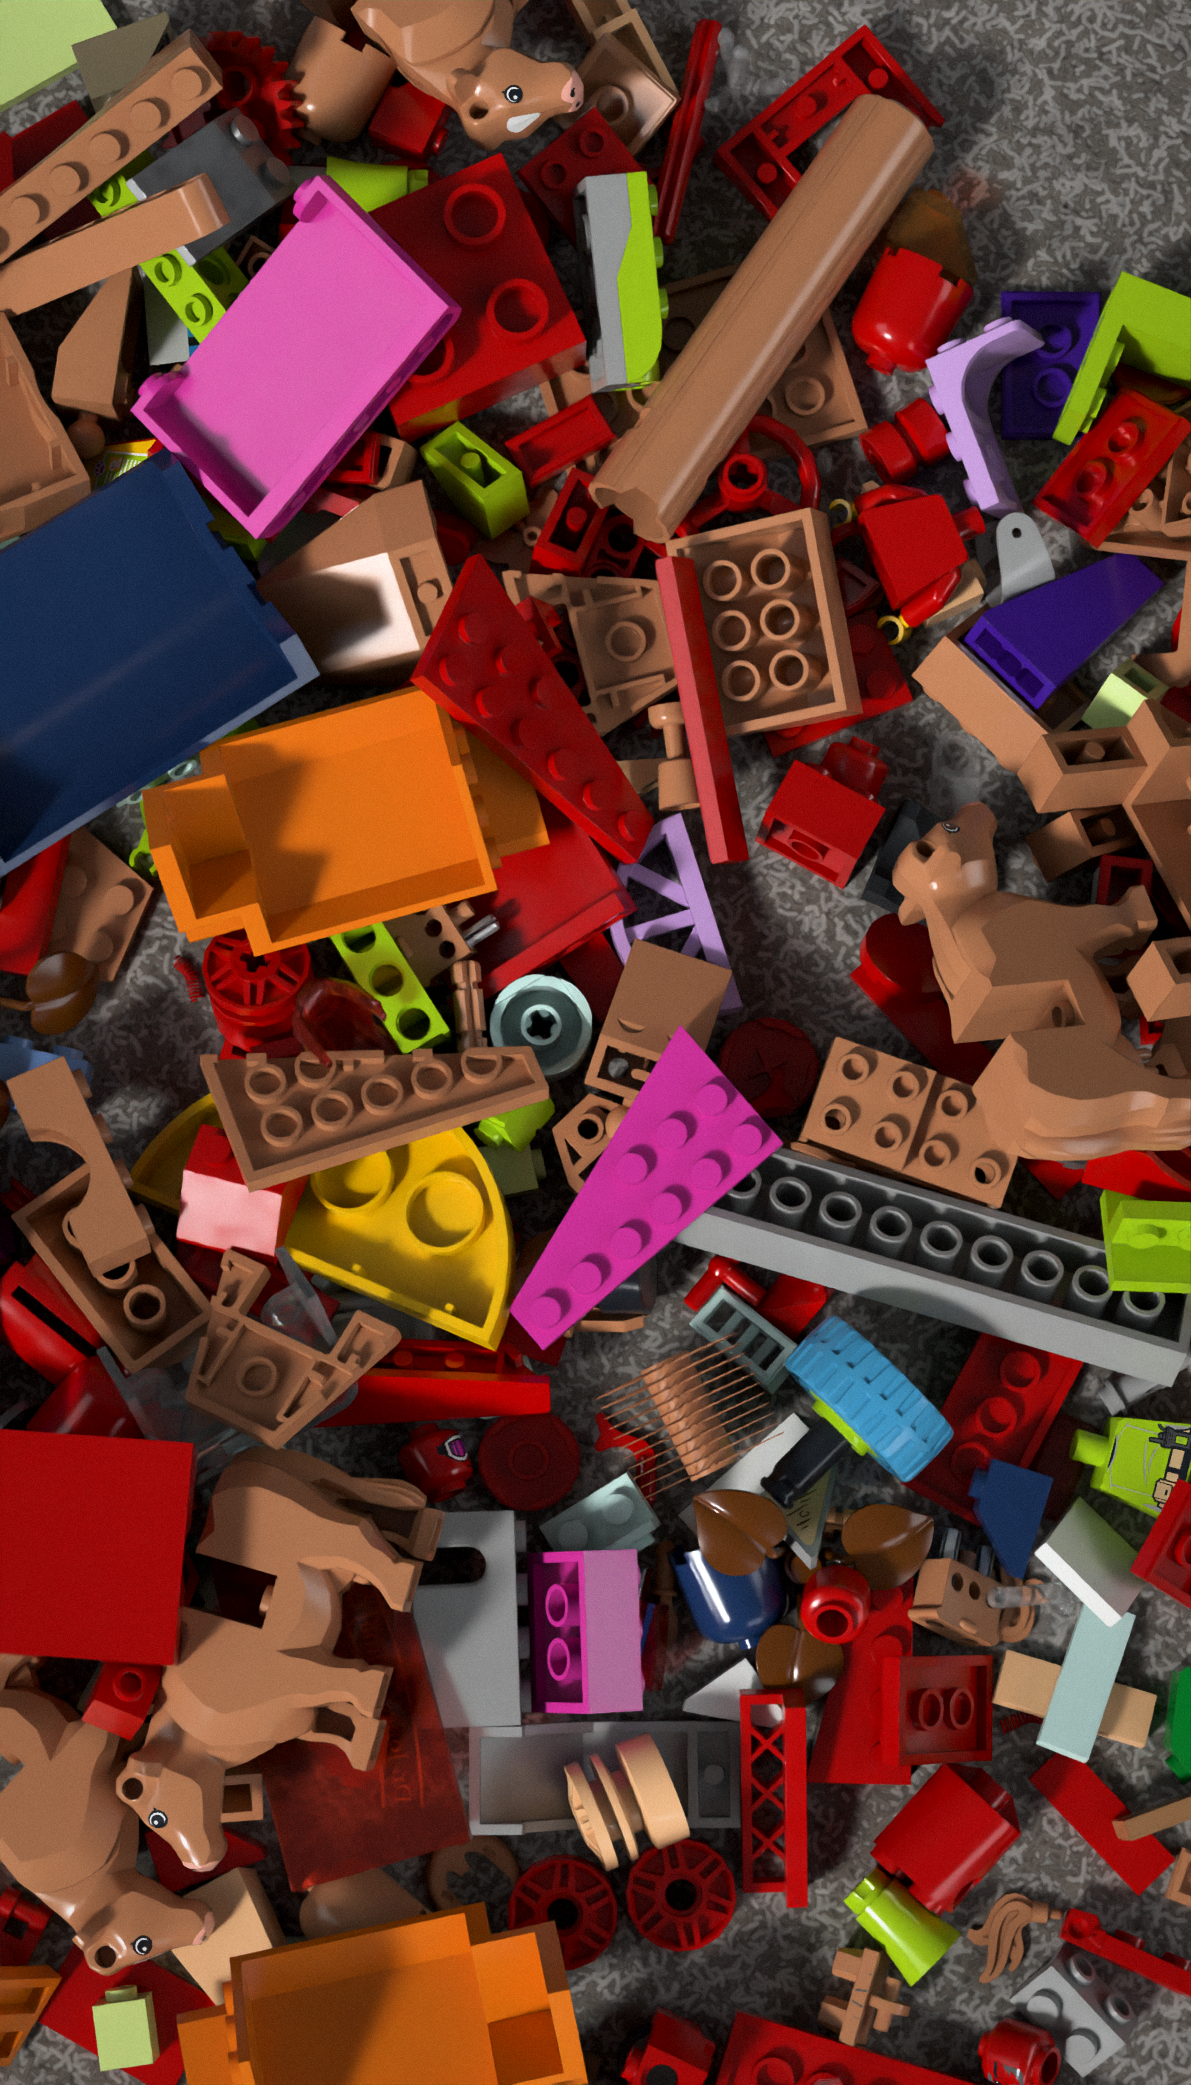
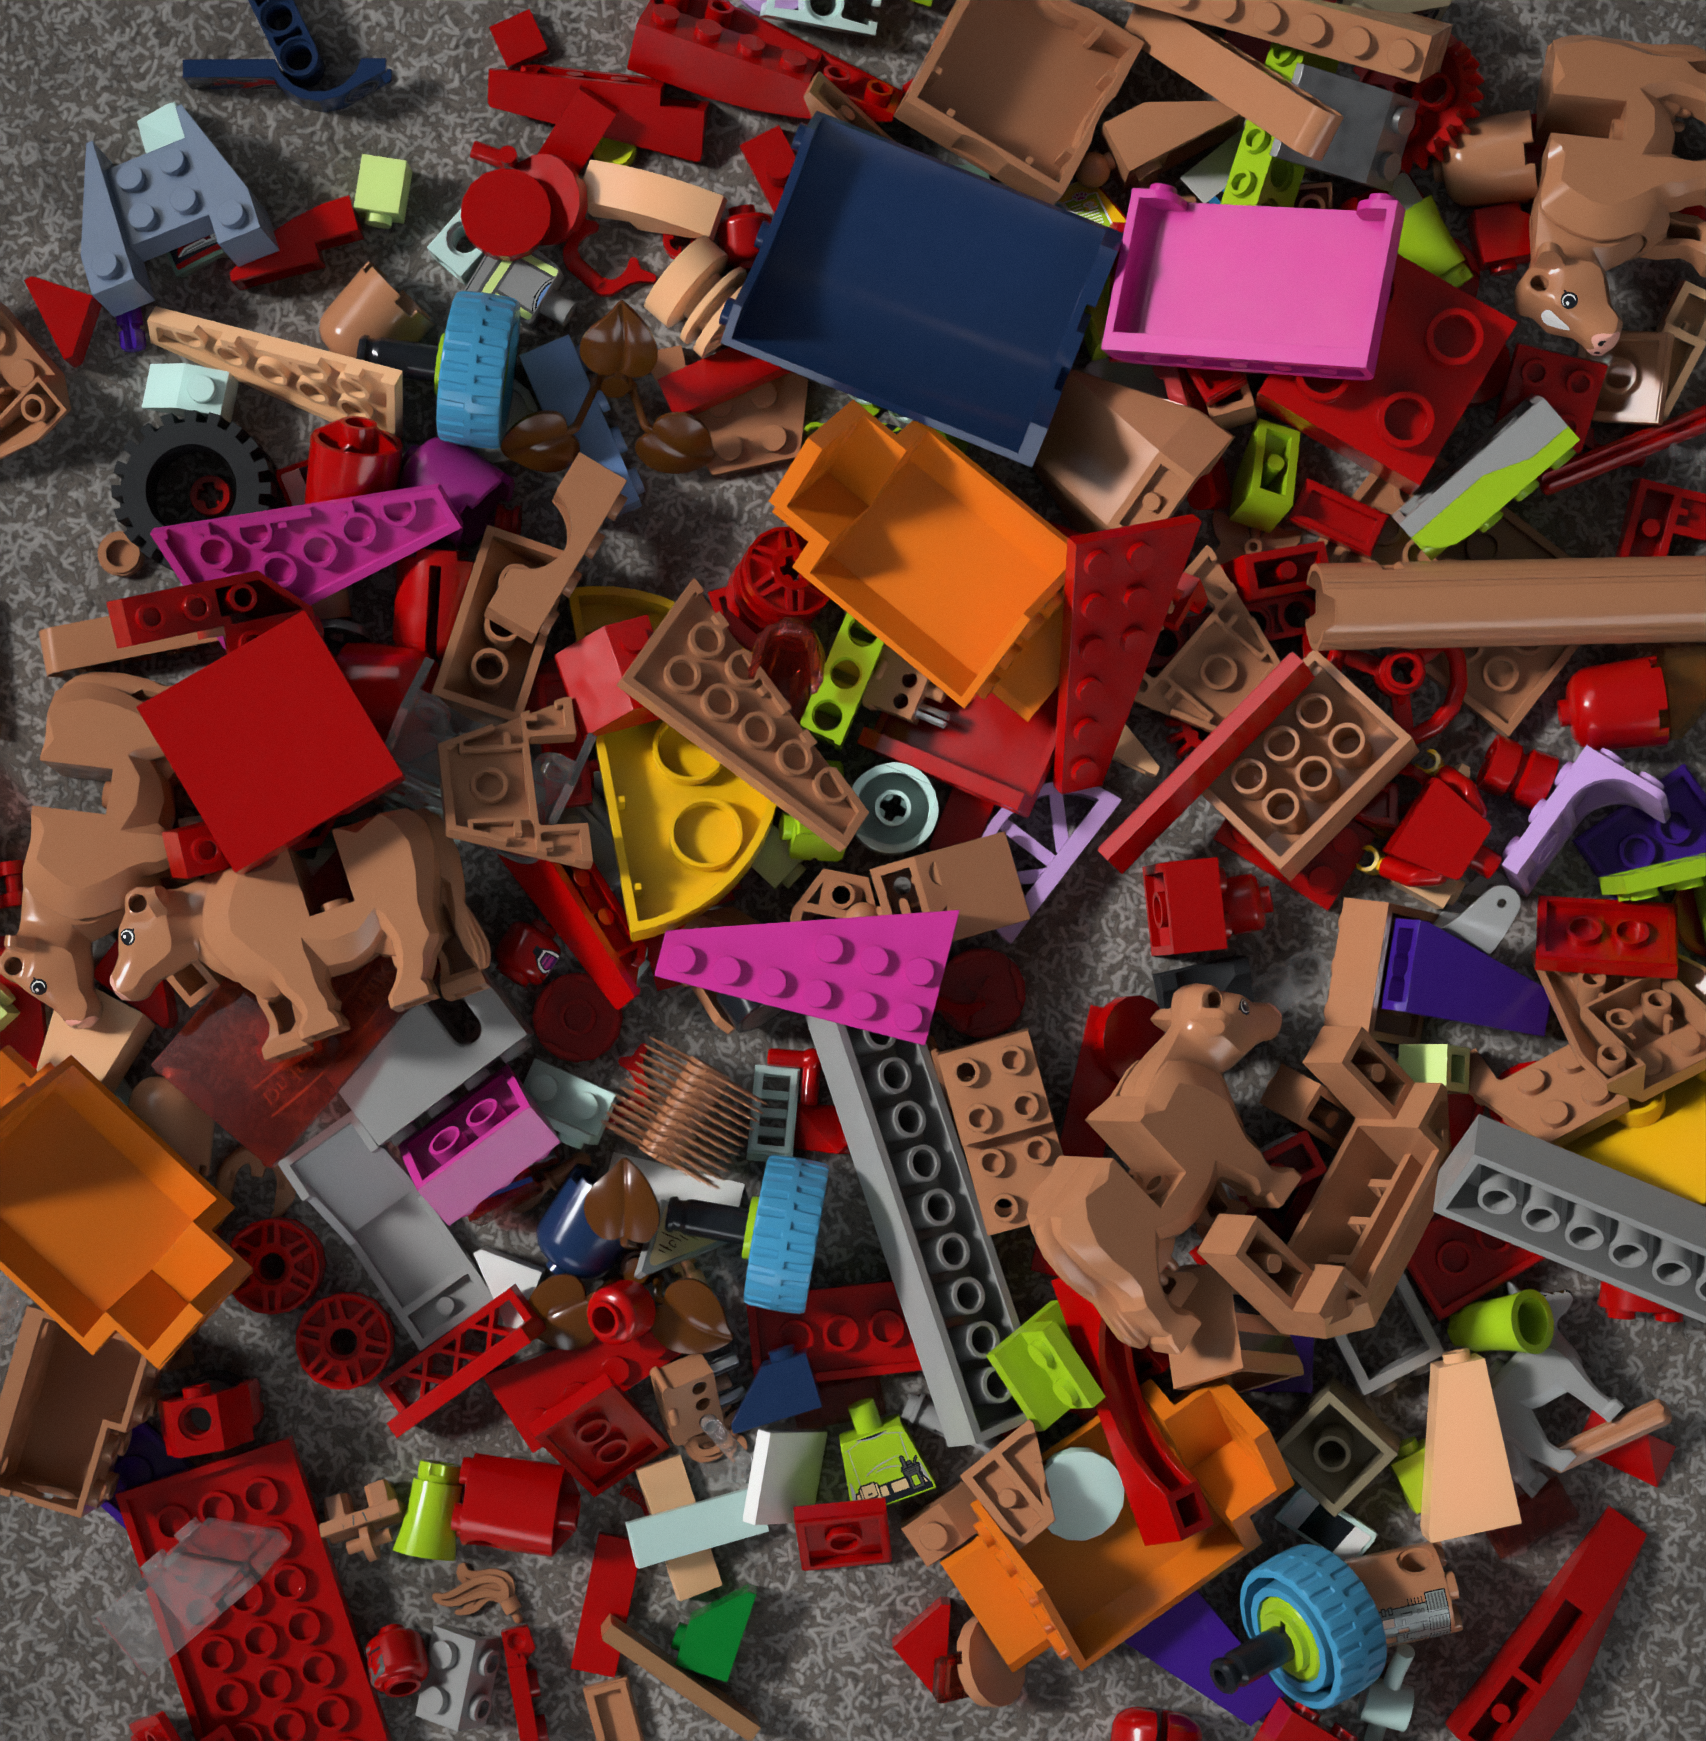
camera: 55 degrees right, 5 degrees up
(183, 967) = (755, 521): red leg -> none
(468, 1004) = (869, 746): nougat axle -> none
(626, 1801) = (378, 1258): light nougat wheel -> none
(675, 775) = (1145, 777): nougat piece -> none

